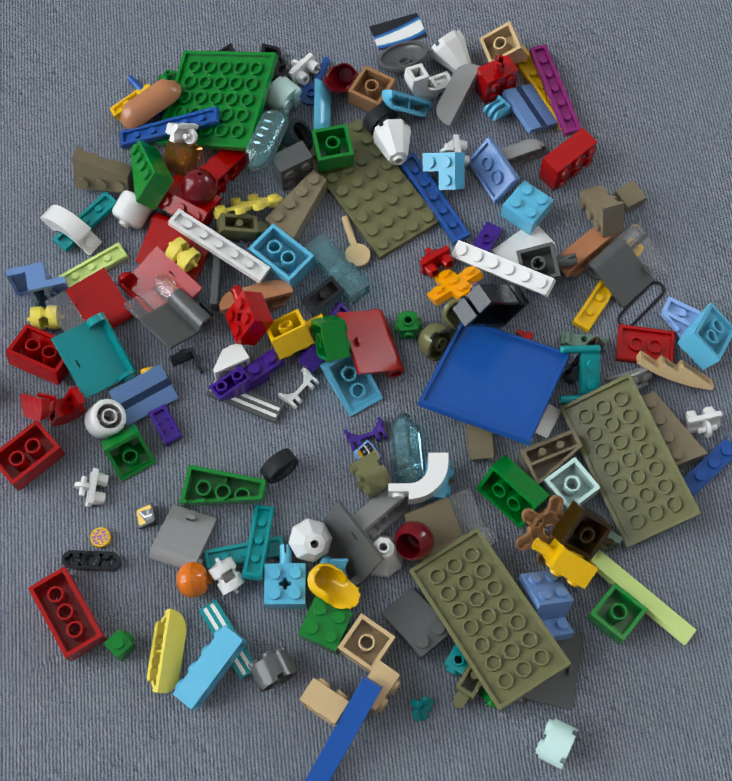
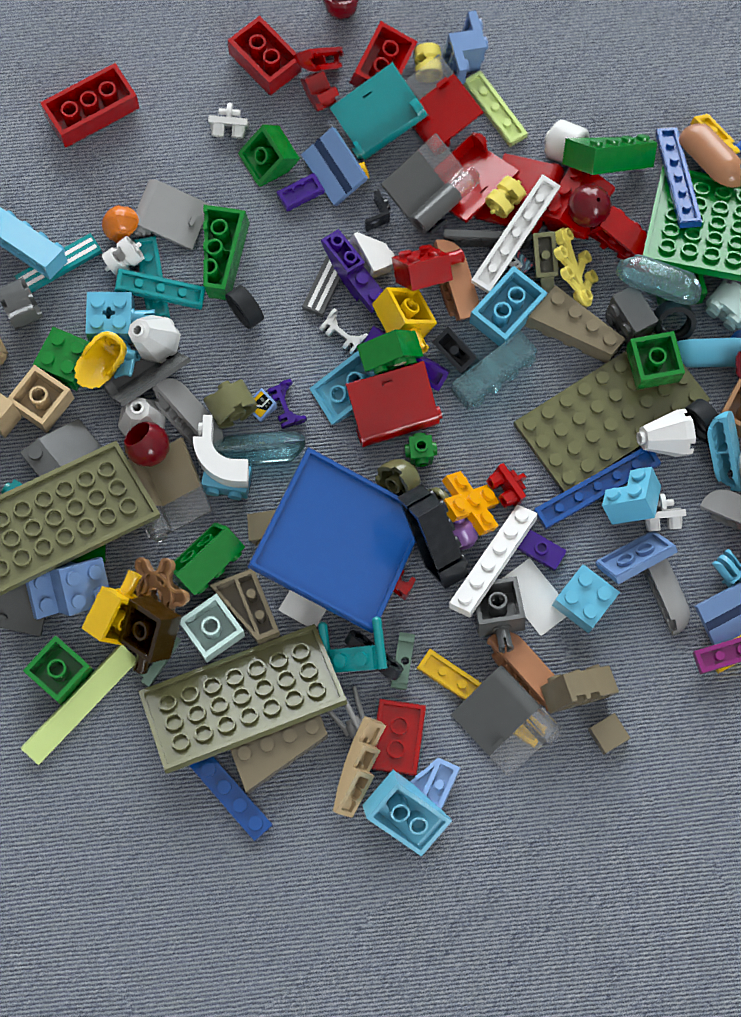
camera: 85 degrees right, 5 degrees up
(62, 220) = (542, 74): white arch -> none
(91, 216) = (552, 96): teal plate -> none
(97, 567) = (154, 136): black beam -> none
(100, 174) = (612, 103): dark tan wedge -> none
(100, 537) = (174, 135): yellow tile -> none
(105, 418) = (296, 134): white head -> none
(121, 644) = (55, 157): green brick -> none
(146, 516) = (197, 179): slope -> none
(167, 652) = (45, 204): light yellow brick -> none
(181, 157) = (641, 193): clear orange slope -> none
(182, 132) = (660, 185): white hips -> none
(355, 253) = (518, 396): tan piece -> none
(567, 159) = (654, 651): red brick -> none
(654, 282) = (449, 745): black piece -> none
(703, 423) = (289, 798): white hips -> none

